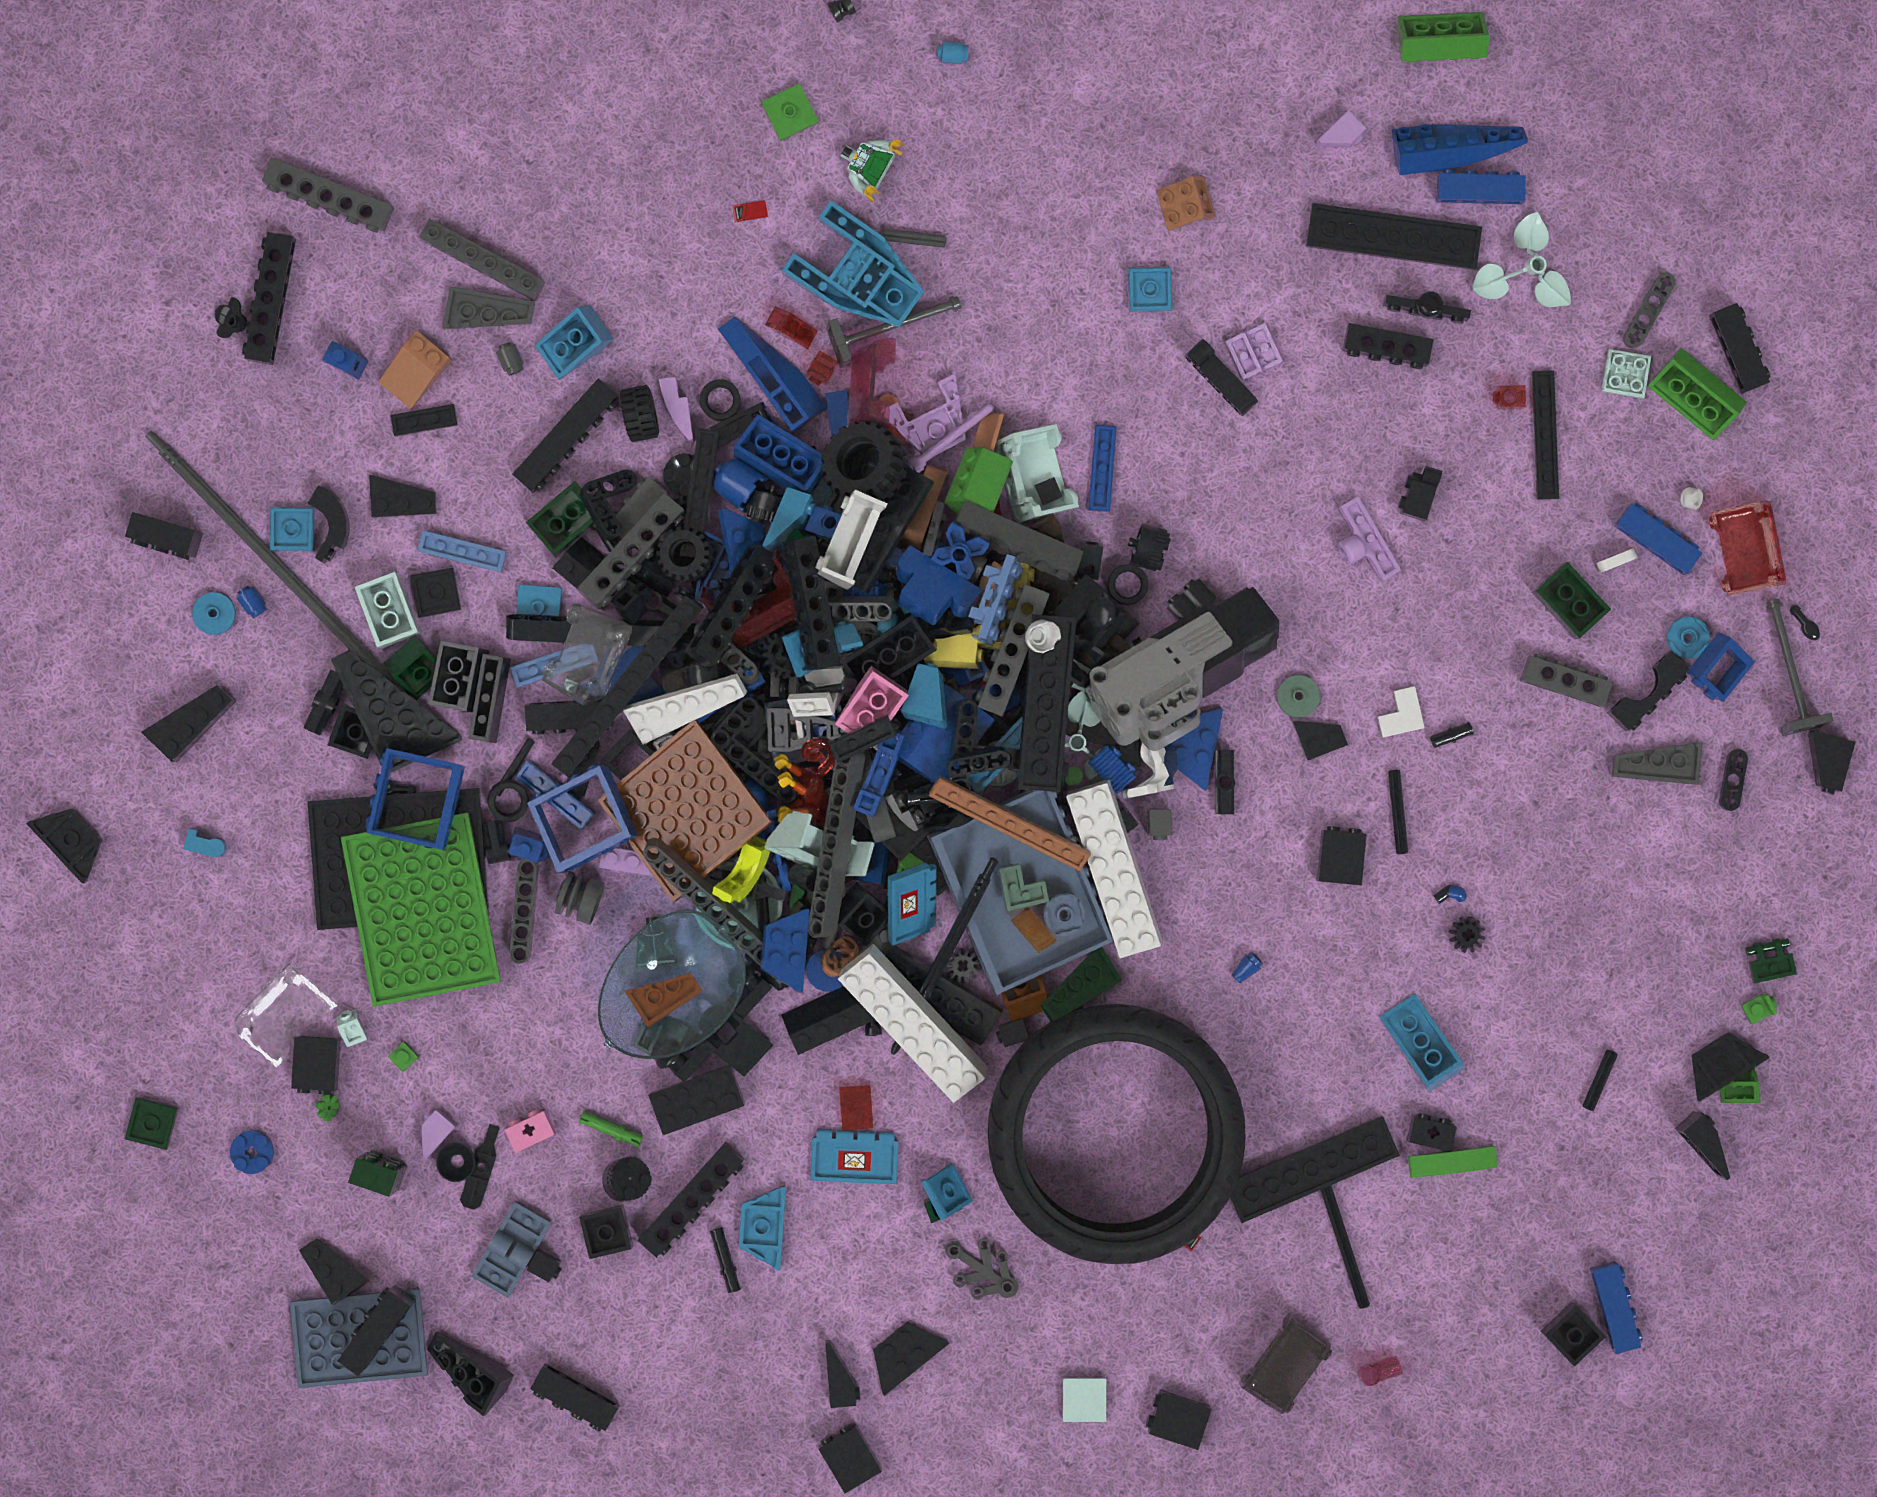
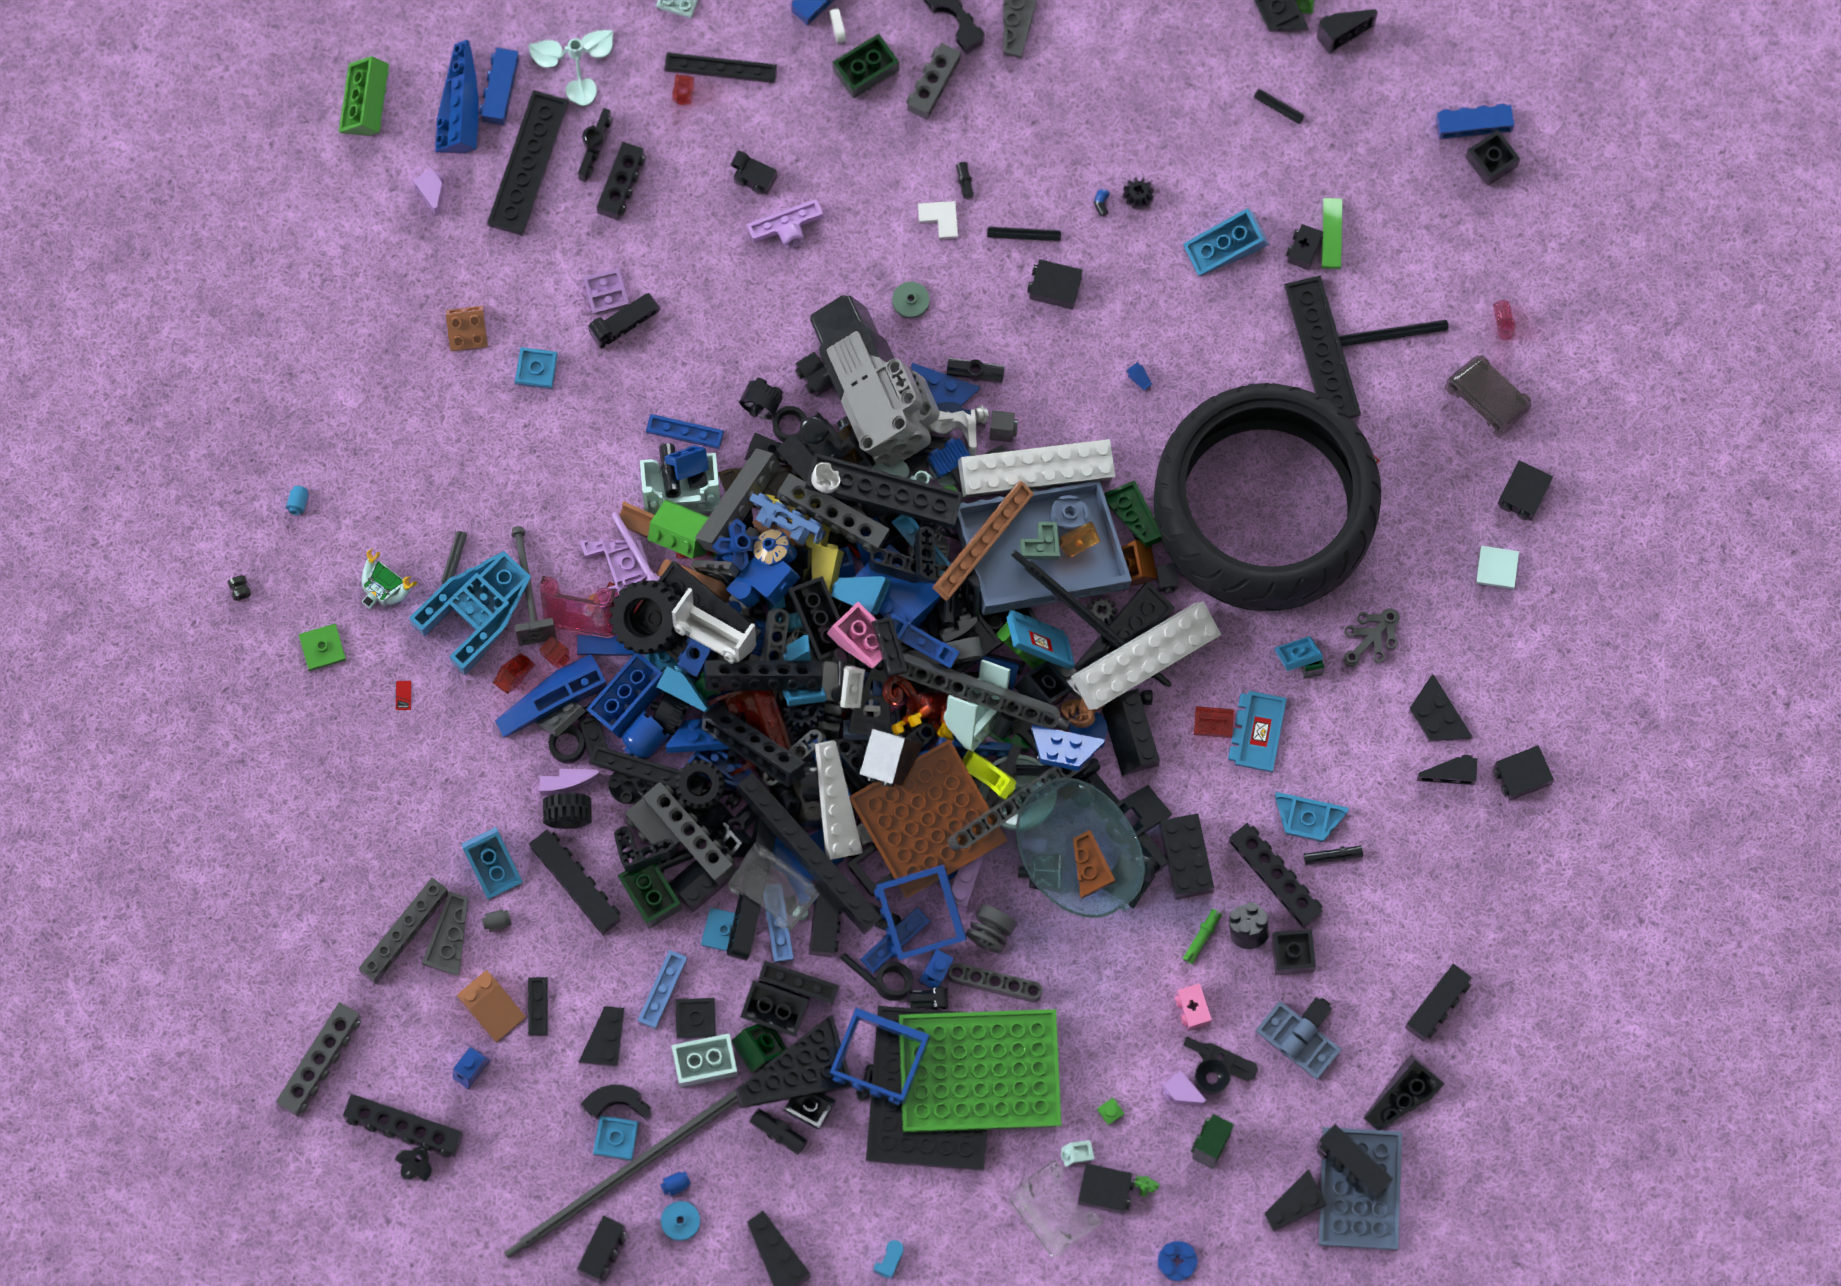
camera: 80 degrees left, 15 degrees down
(740, 758) = (889, 758): none -> slope
(744, 388) = (561, 719): none -> dark grey wing
(961, 596) = (776, 551): none -> tan dish
(1050, 459) = (671, 484): none -> black axle
(1061, 477) = (688, 461): none -> blue panel
(1173, 796) = (981, 414): none -> white plate
(1319, 738) = (950, 288): black wing -> none

